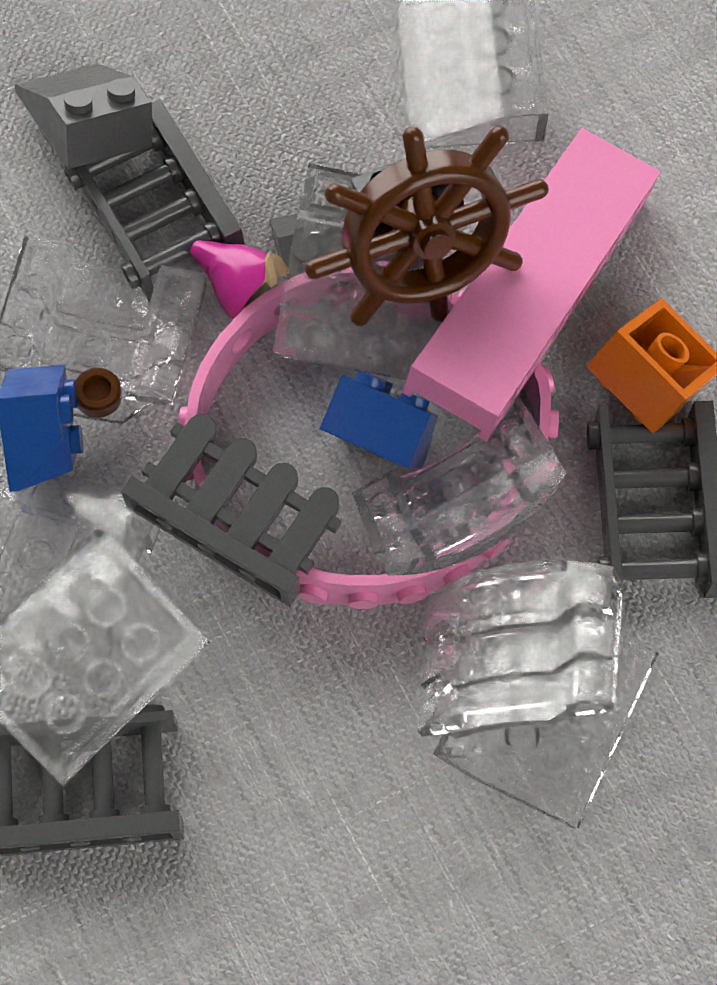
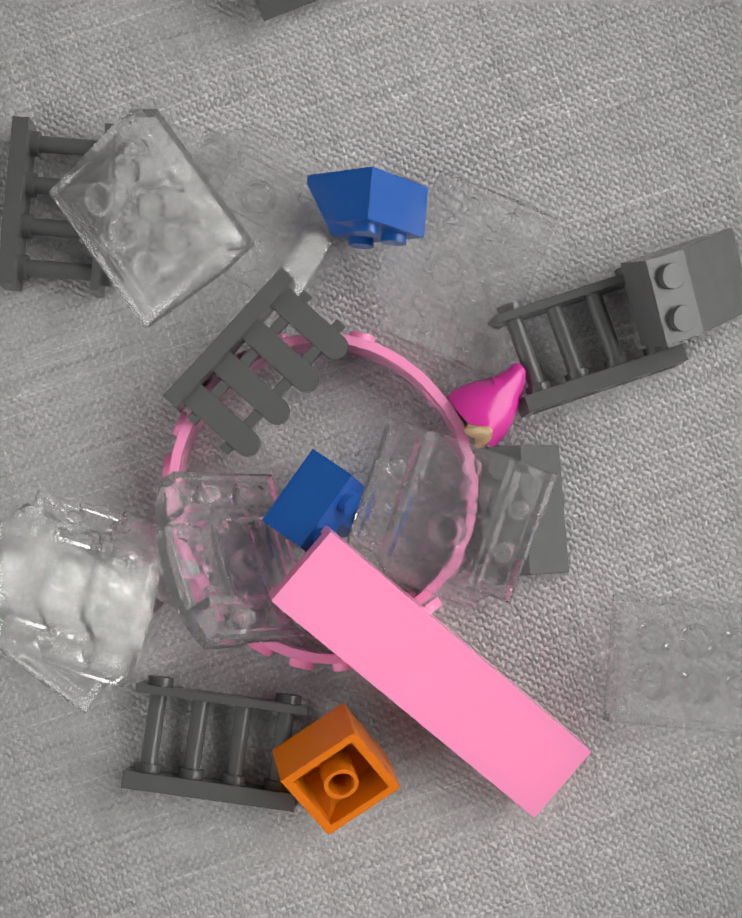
camera: 100 degrees right, 15 degrees up
(98, 392) = (398, 264): reddish brown tile -> none
(417, 211) = (459, 564): reddish brown brick -> none

